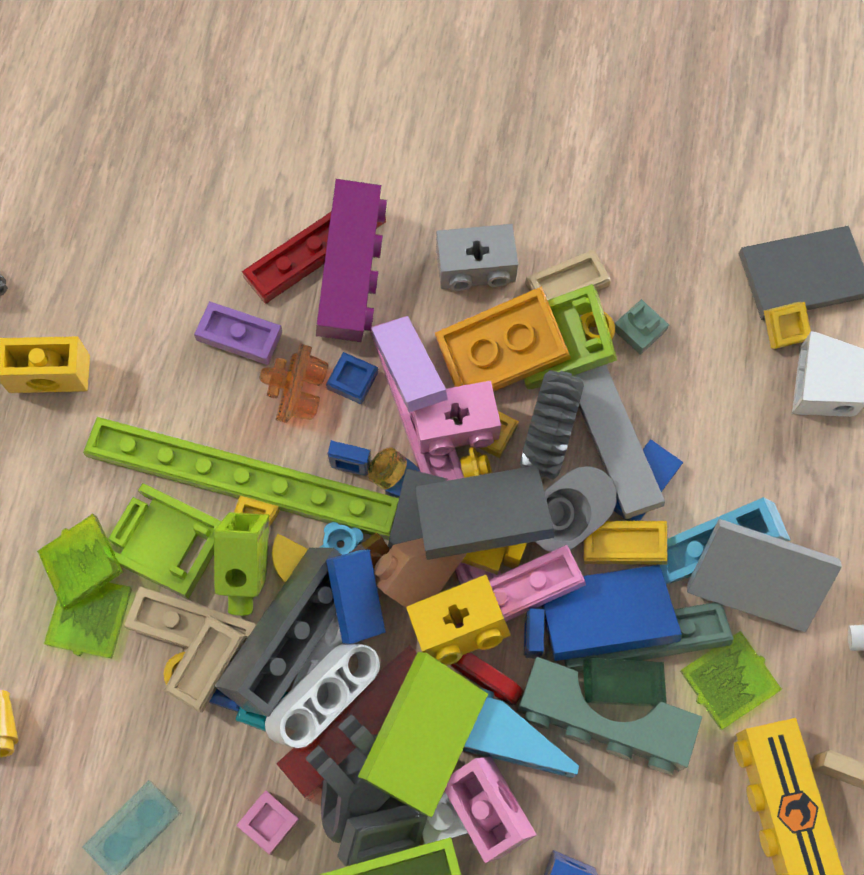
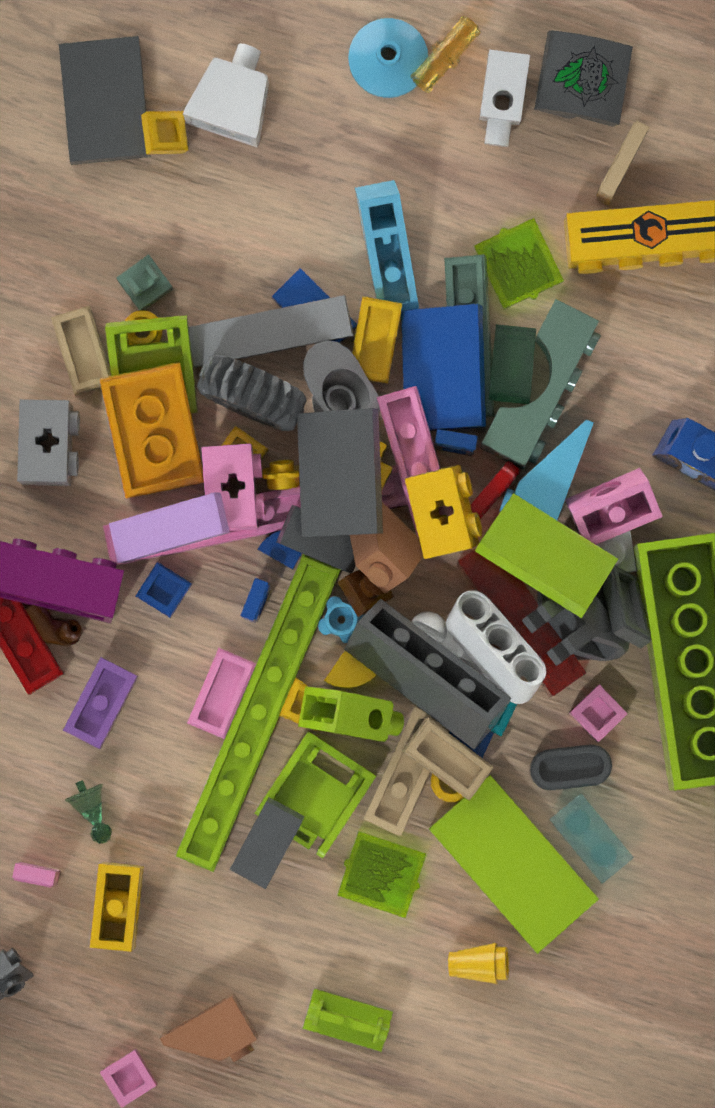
camera: 80 degrees left, 15 degrees up
(73, 295) = (35, 874): none -> bright pink tile
(79, 562) = (329, 878): clear neon green piece -> none
(101, 751) = (514, 864): none -> lime tile
(112, 497) = (267, 843): none -> dark grey tile
(142, 335) = (89, 805): none -> clear green piece
(208, 799) = (570, 767): none -> dark grey tile
(258, 440) = (221, 693): none -> bright pink tile
(301, 369) = (165, 653): clear orange hips -> none
(304, 285) = (54, 630): none -> reddish brown arm
(355, 596) = (404, 606): blue tile -> none
(387, 468) = (270, 563): clear yellow tile -> none
(763, 575) = (430, 215): light grey tile -> none

